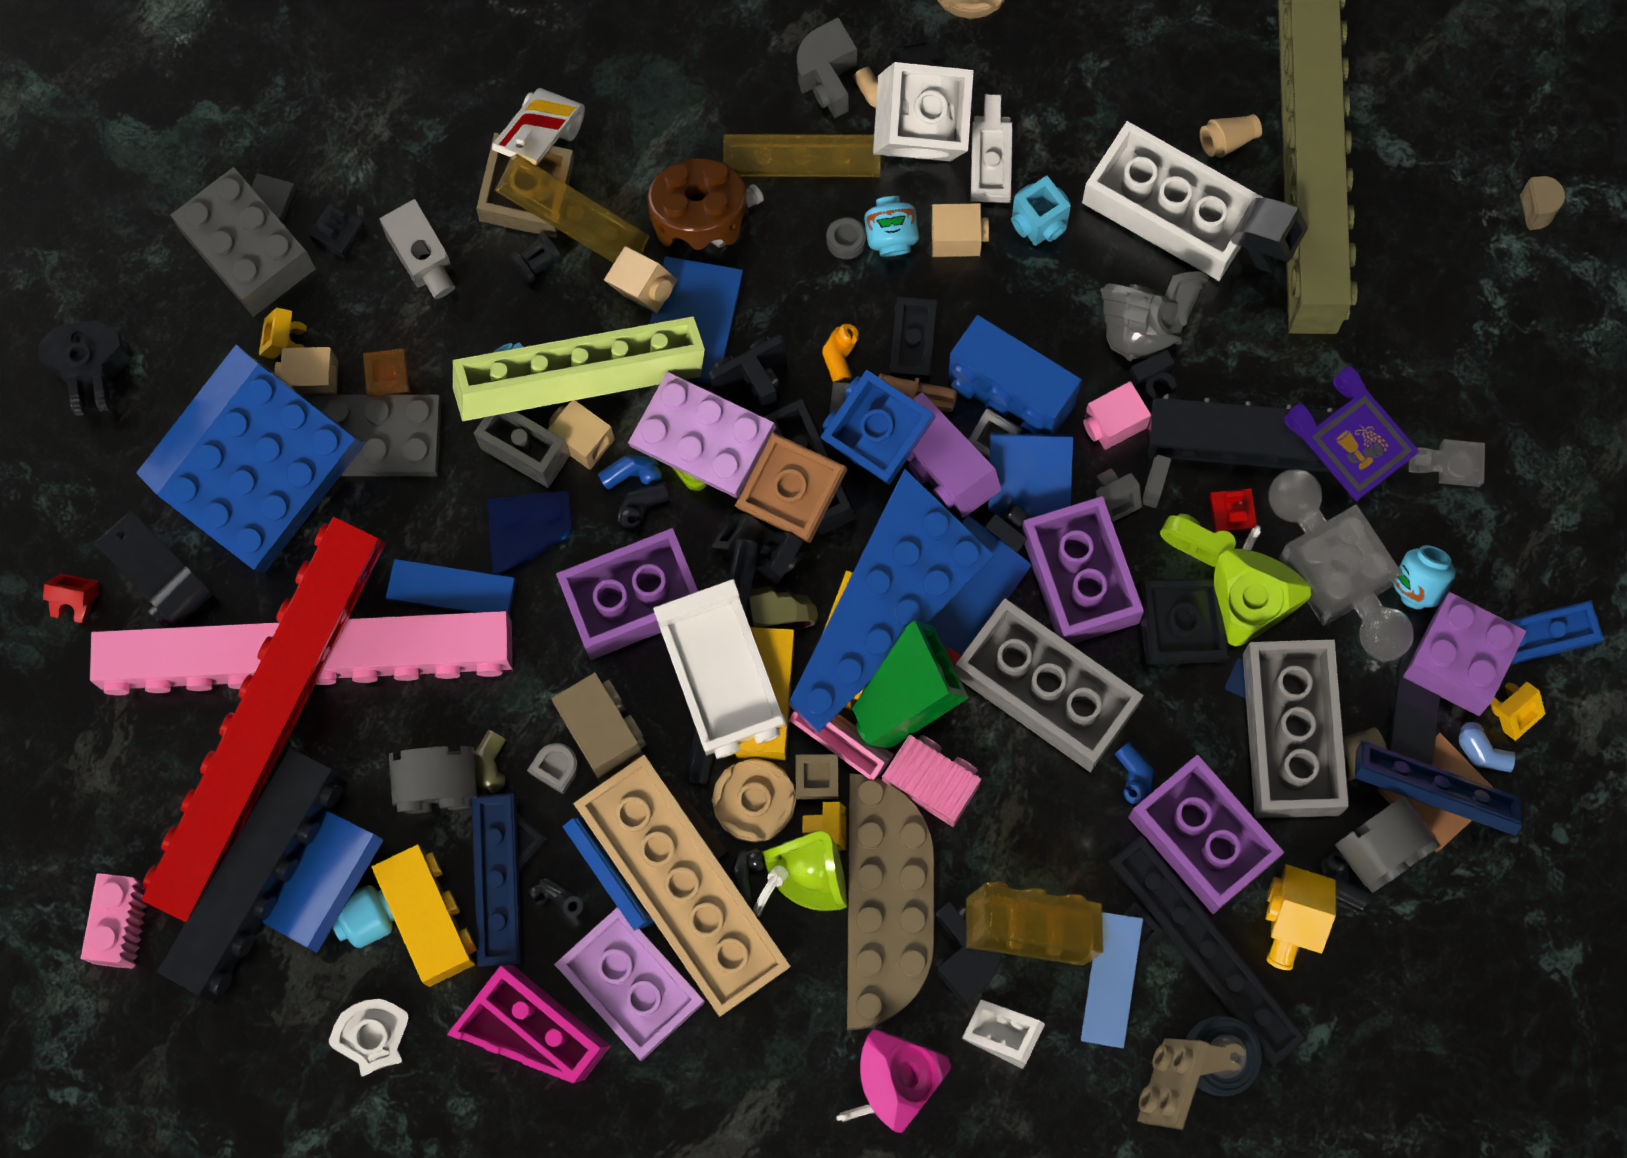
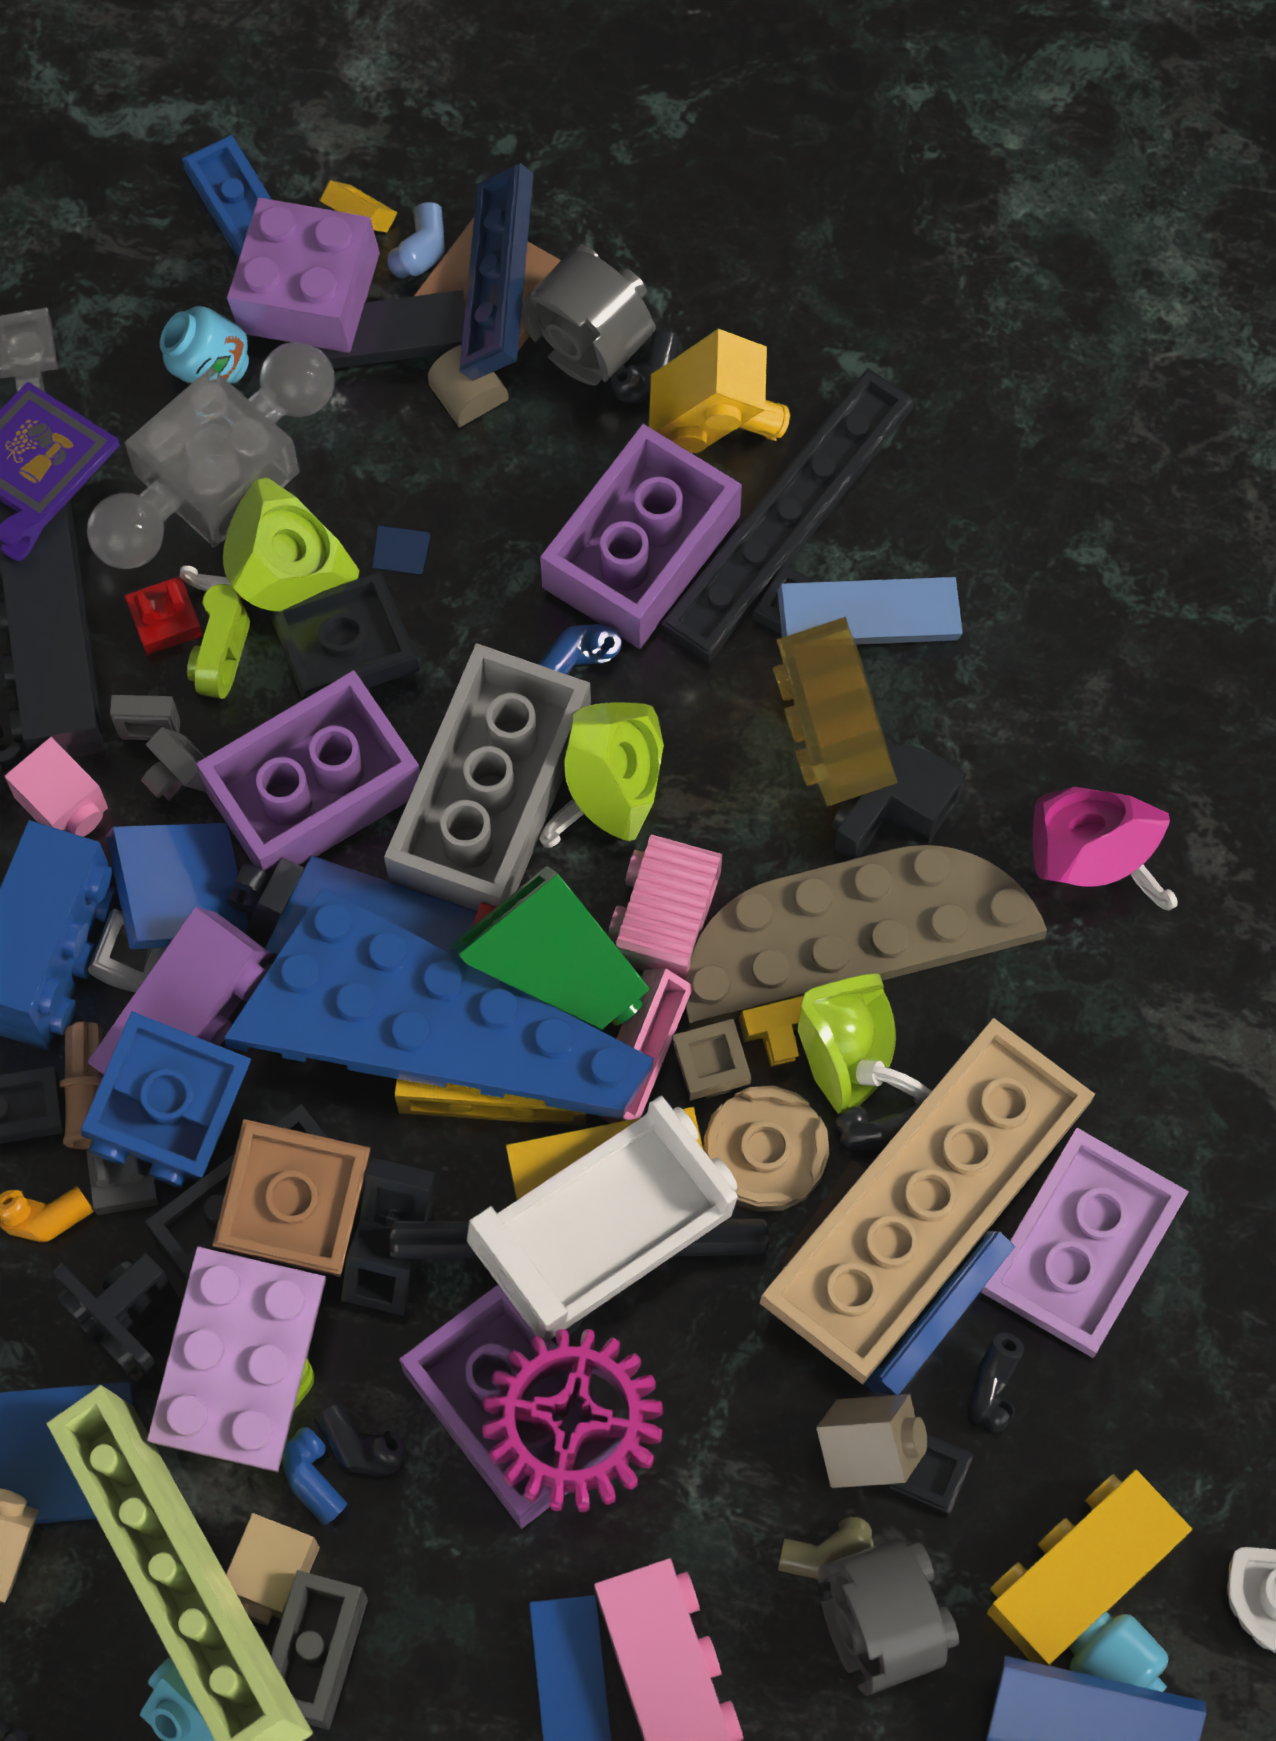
camera: 110 degrees left, 5 degrees down
(497, 880) = (1000, 1479): dark blue tile -> none
(525, 526) = (441, 1614): clear blue wing -> none
(530, 1026) = (1198, 1355): dark pink wedge -> none
(540, 801) = (871, 1440): none -> dark tan brick
(555, 766) = (796, 1453): light grey tile -> none
(589, 630) = (542, 1410): none -> dark pink gear
(595, 722) = (735, 1381): dark tan brick -> none
(781, 609) = (472, 1177): olive rock -> none
(1003, 1032) = (987, 721): white slope -> none
(1039, 767) = (610, 769): none -> lime hat
(1217, 1057) = (962, 489): dark tan plate -> none
(1295, 729) = (463, 459): light grey brick -> none

